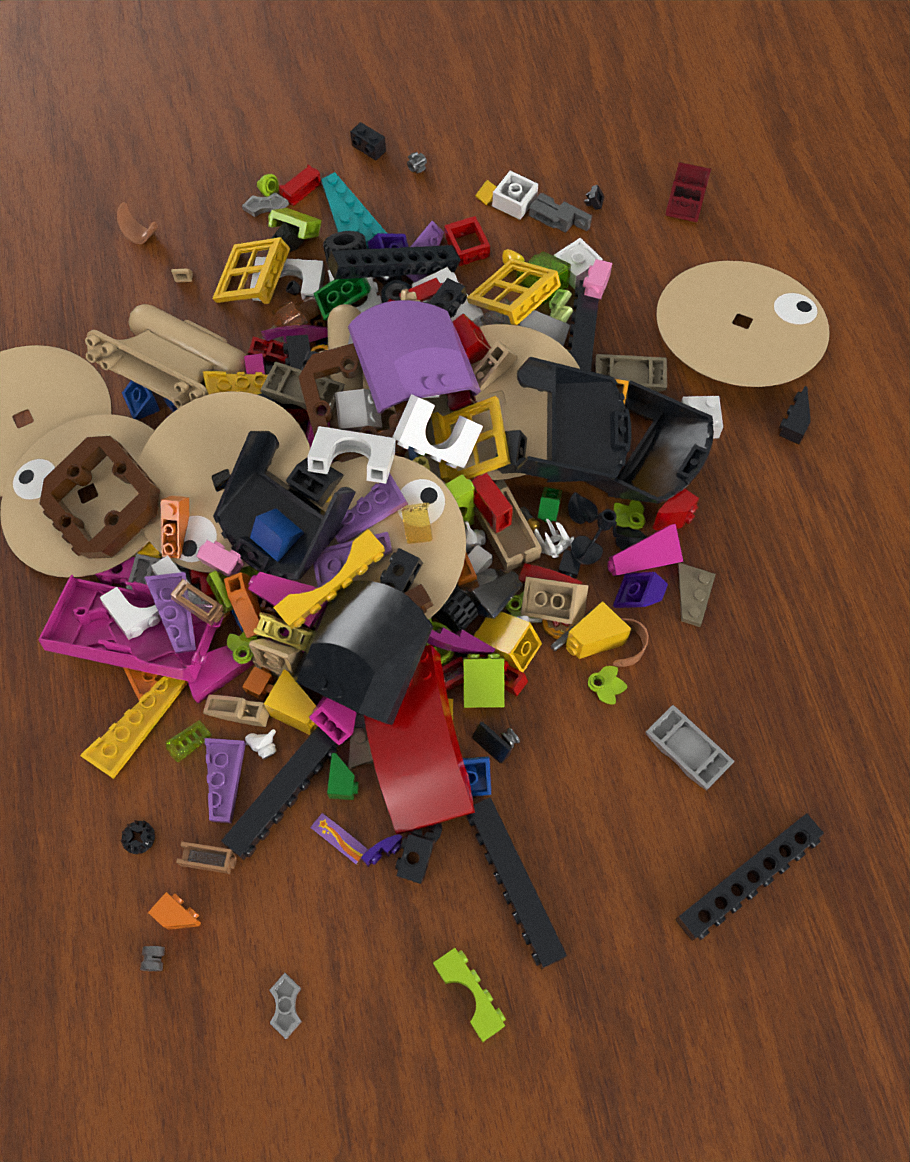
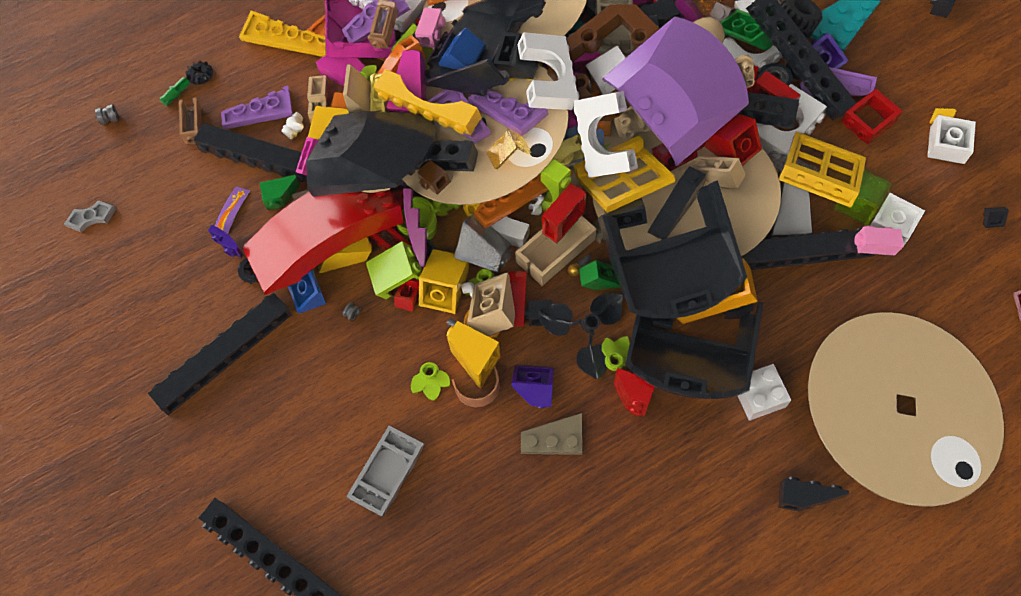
camera: 75 degrees right, 0 degrees up
(153, 870) = (174, 91): none -> green axle
(172, 914) = (143, 115): orange slope -> none
(183, 735) = (278, 66): clear neon green slope -> none
(416, 162) = (943, 44): dark grey gear -> none
(423, 847) = (222, 266): black brick -> none
(453, 969) = (104, 362): lime arch -> none
(457, 611) = (451, 221): black tyre -> none
(473, 537) = (533, 219): white animal -> none
(492, 743) = (345, 297): black slope -> none
(509, 254) = (871, 162): yellow brick -> none
(515, 408) = (677, 203): none -> black slope
(548, 546) = (566, 291): white piece -> none
(557, 305) = (835, 218): yellowish green tile -> none
(558, 216) = (949, 187): dark grey plate -> none
(643, 370) = (786, 310): dark tan slope -> none
(651, 552) = (579, 381): dark pink slope -> none

